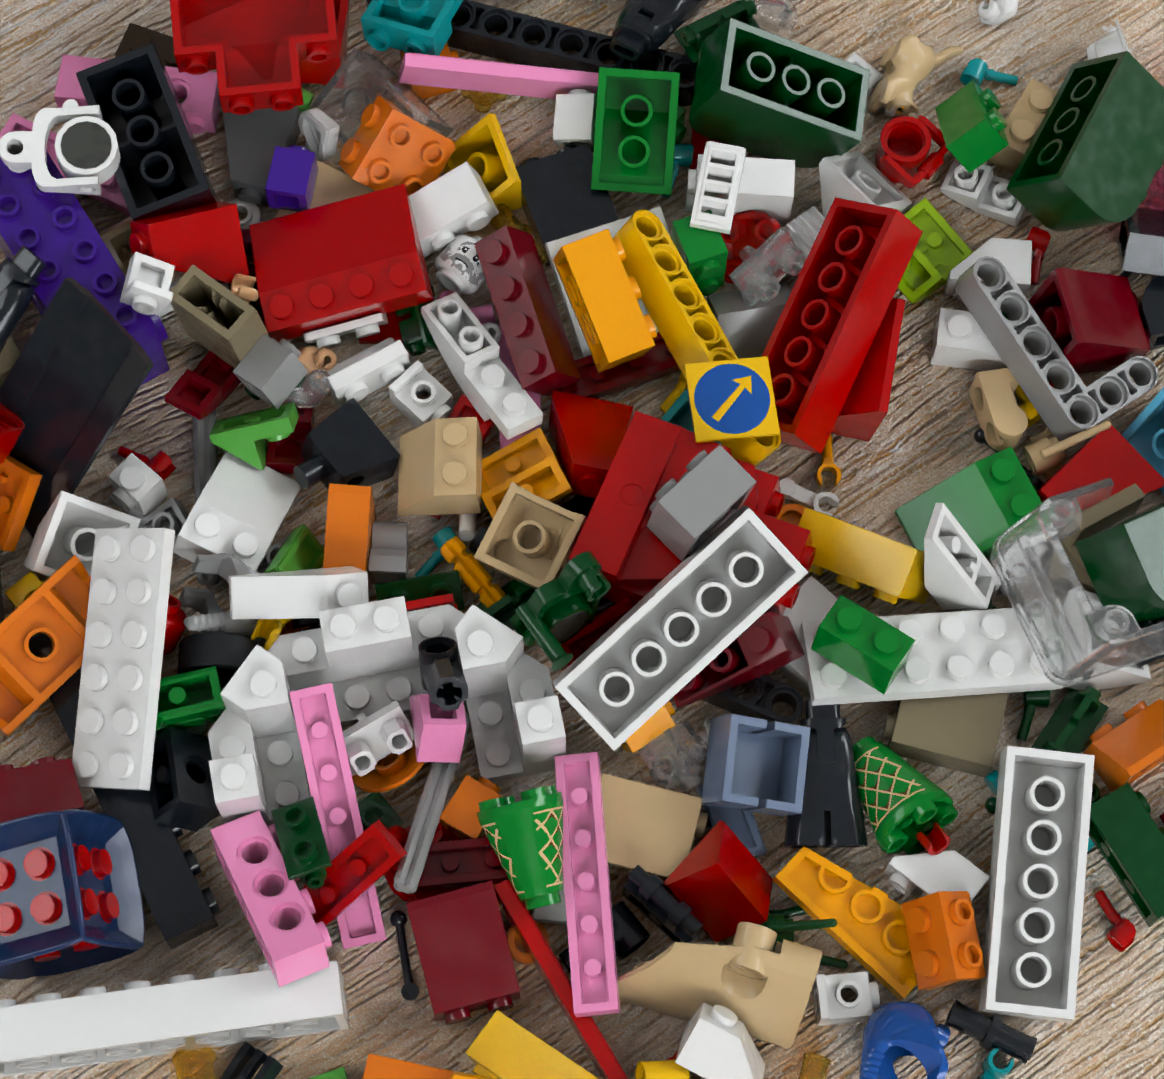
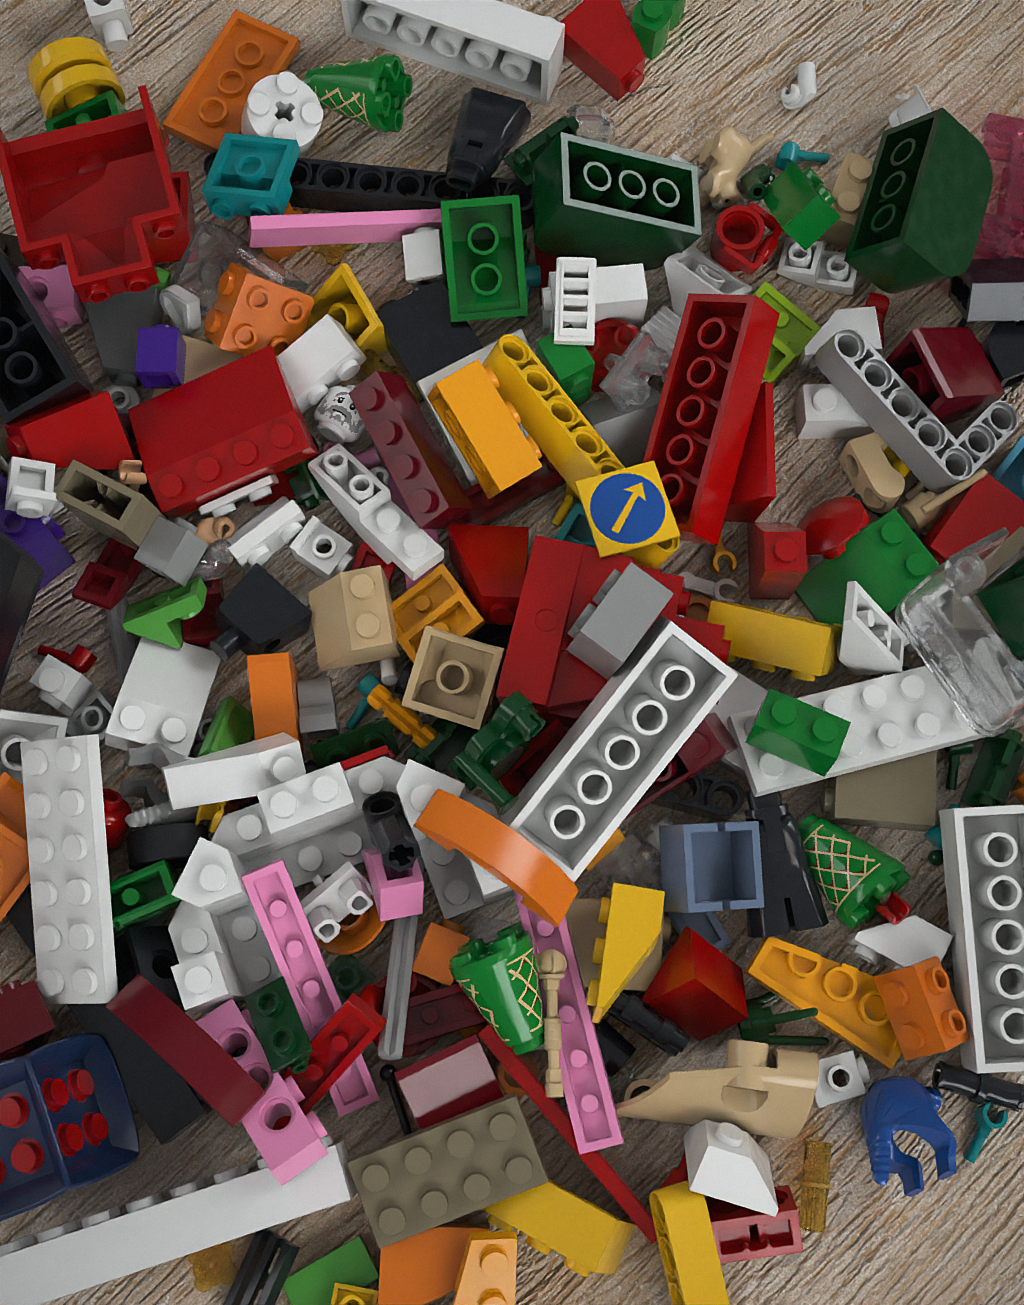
camera: 10 degrees left, 5 degrees up
(212, 841) = (186, 1049): none -> dark red slope
(442, 1007) = (447, 1170): none -> dark tan plate
(548, 707) = (500, 852): none -> orange slope
(577, 831) = (550, 966): none -> tan piece
(659, 820) = (630, 934): none -> yellow slope
(878, 481) = (775, 559): none -> red slope
(935, 93) = (755, 181): none -> dark green arm
(942, 455) = (833, 525): none -> red dish

